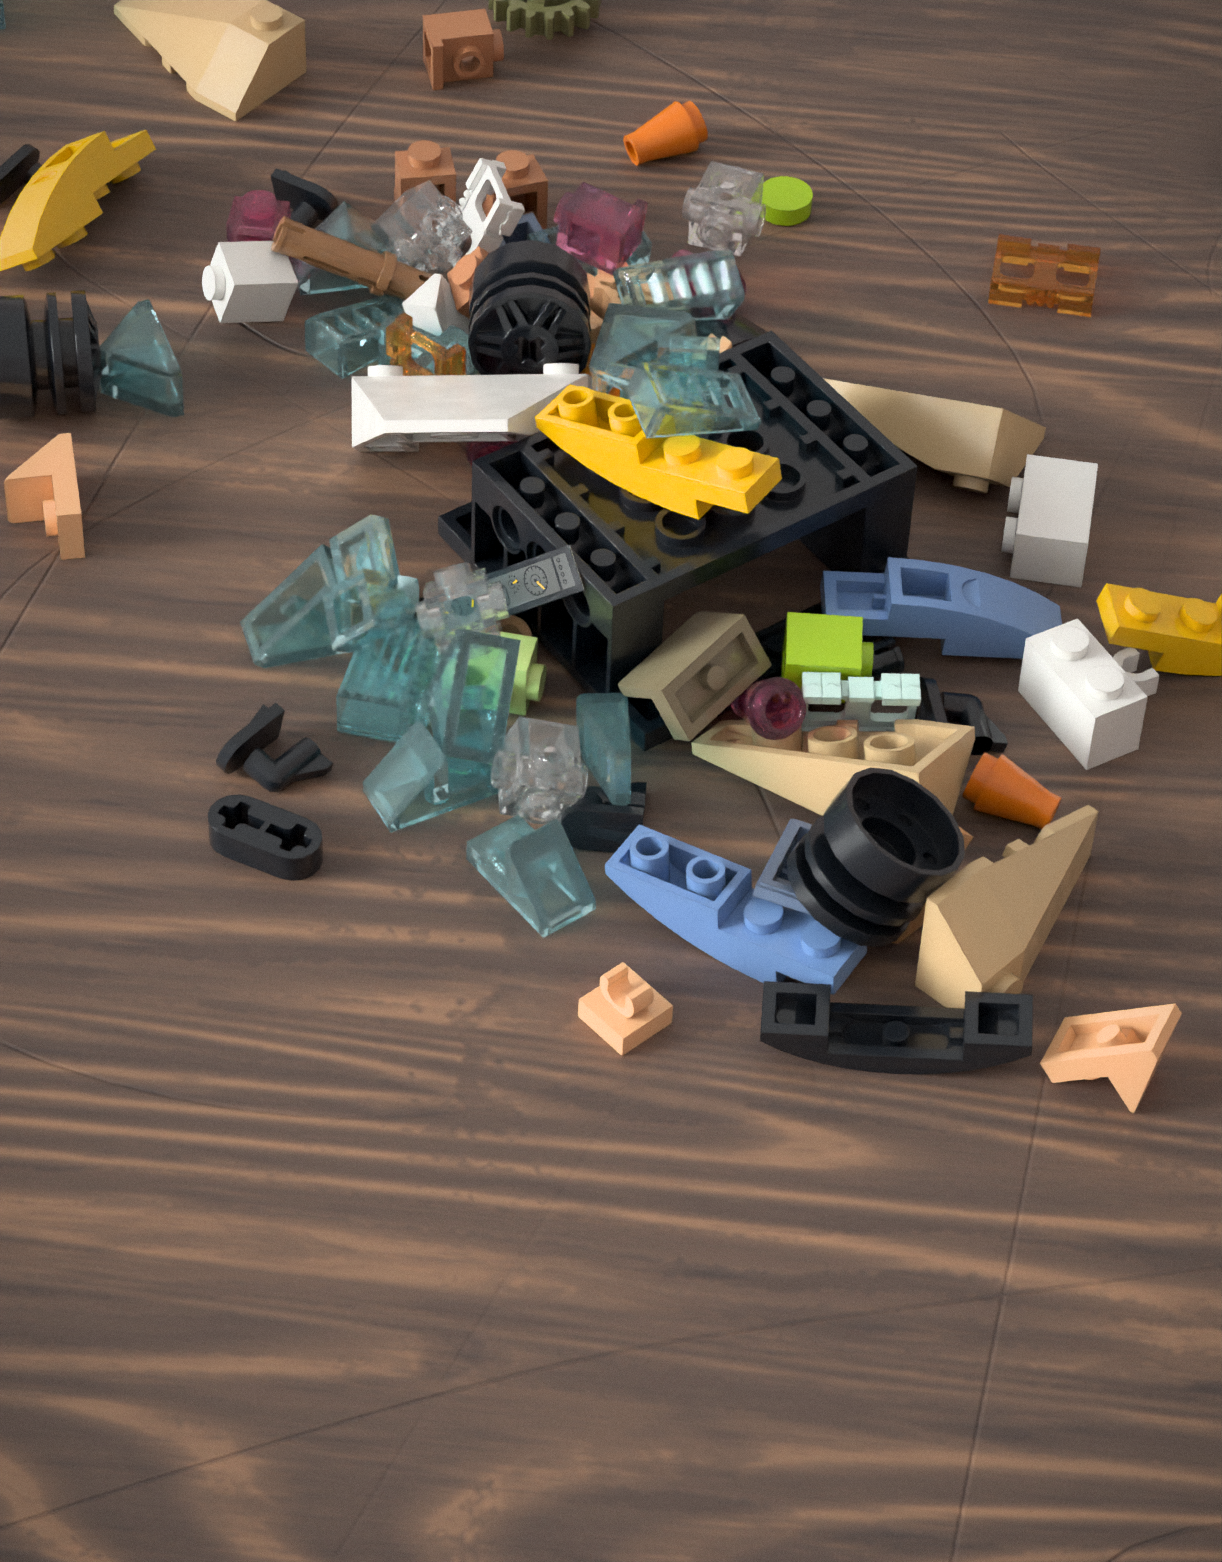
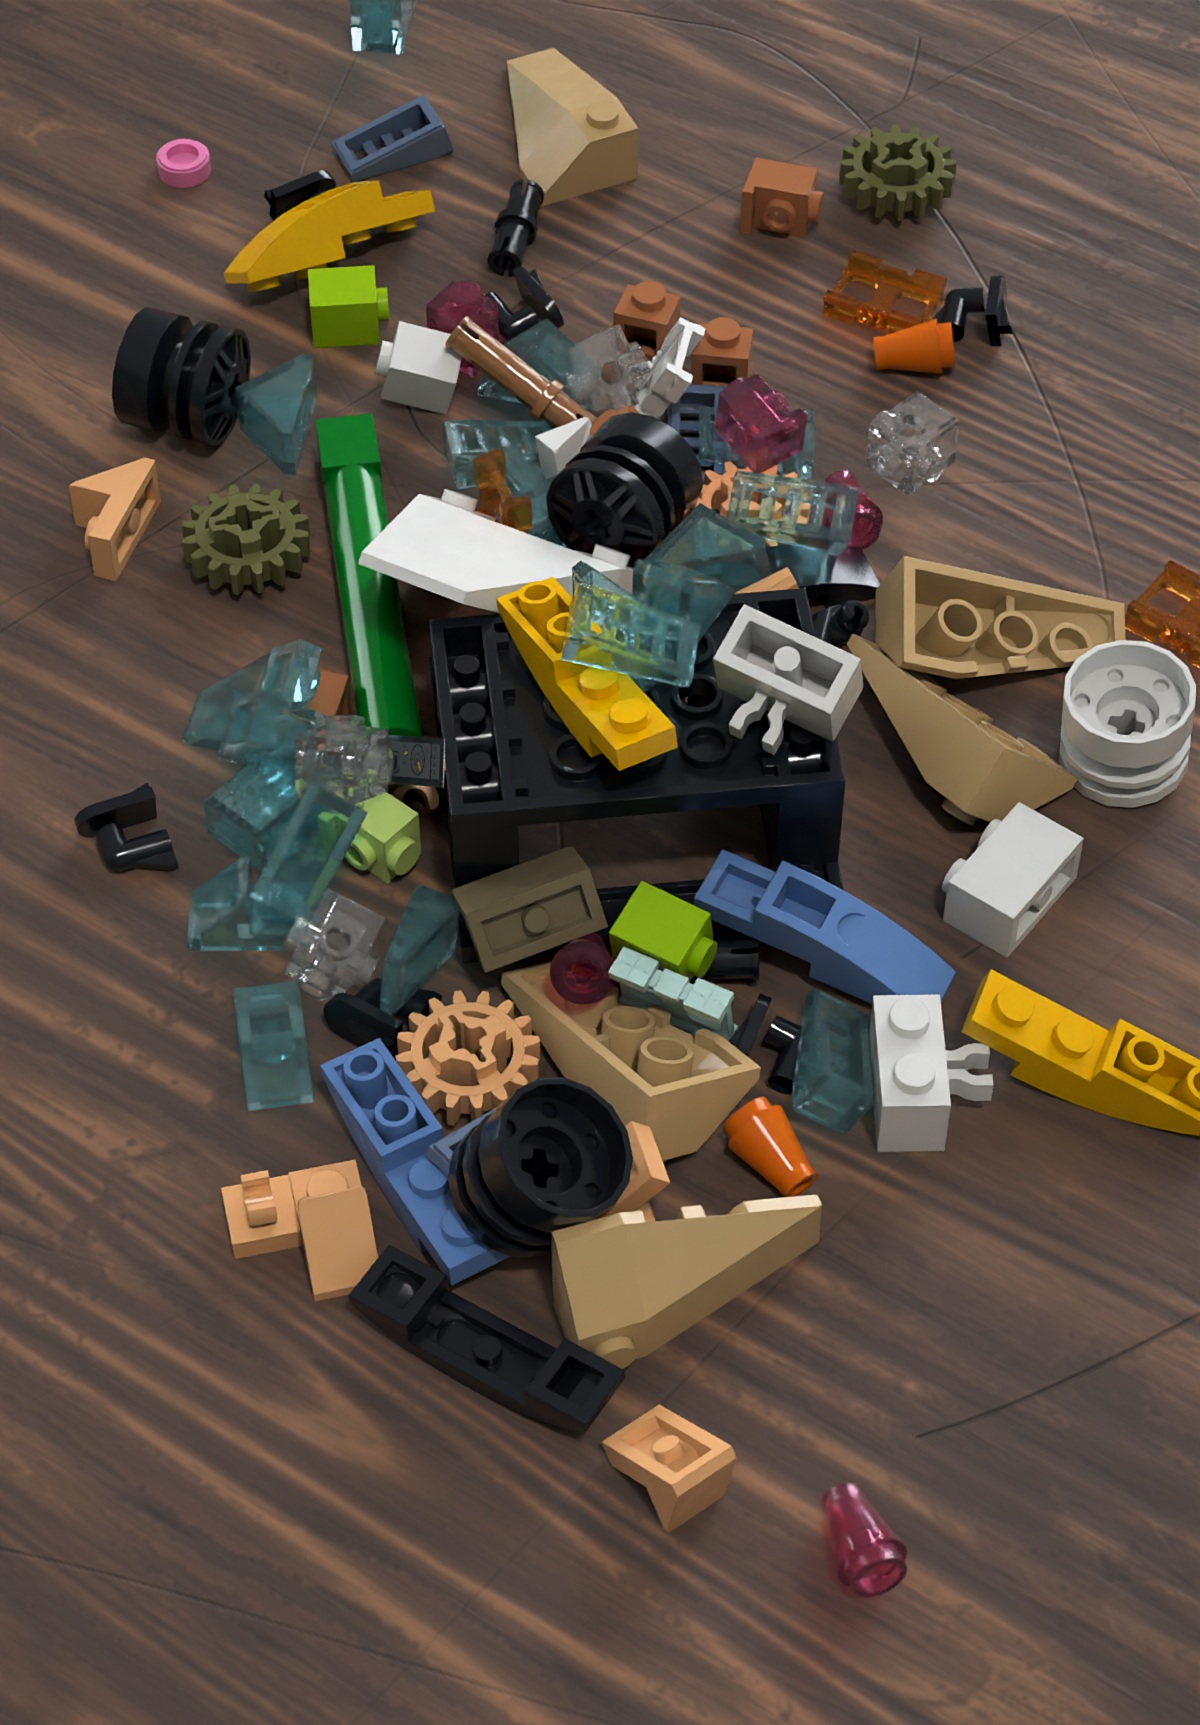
camera: 30 degrees right, 5 degrees up
(73, 74) = (410, 136): none -> sand blue slope
(132, 254) = (346, 306): none -> lime brick
(193, 476) = (246, 538): none -> olive gear
(234, 143) = (515, 227): none -> black pin
(248, 394) = (367, 598): none -> green brick
(265, 836) = (79, 905): black beam -> none
(603, 91) = (890, 286): none -> clear orange piece
(677, 84) = (972, 300): none -> black piece
(706, 993) = (334, 1227): none -> light nougat slope
(718, 811) = (468, 1055): none -> light nougat gear
(787, 200) = (989, 453): lime tile -> none
(831, 394) = (787, 676): none -> white brick
(891, 329) = (985, 624): none -> tan wedge
(1016, 714) = (832, 1070): none -> clear light blue slope
(1068, 364) = (1127, 723): none -> white wheel

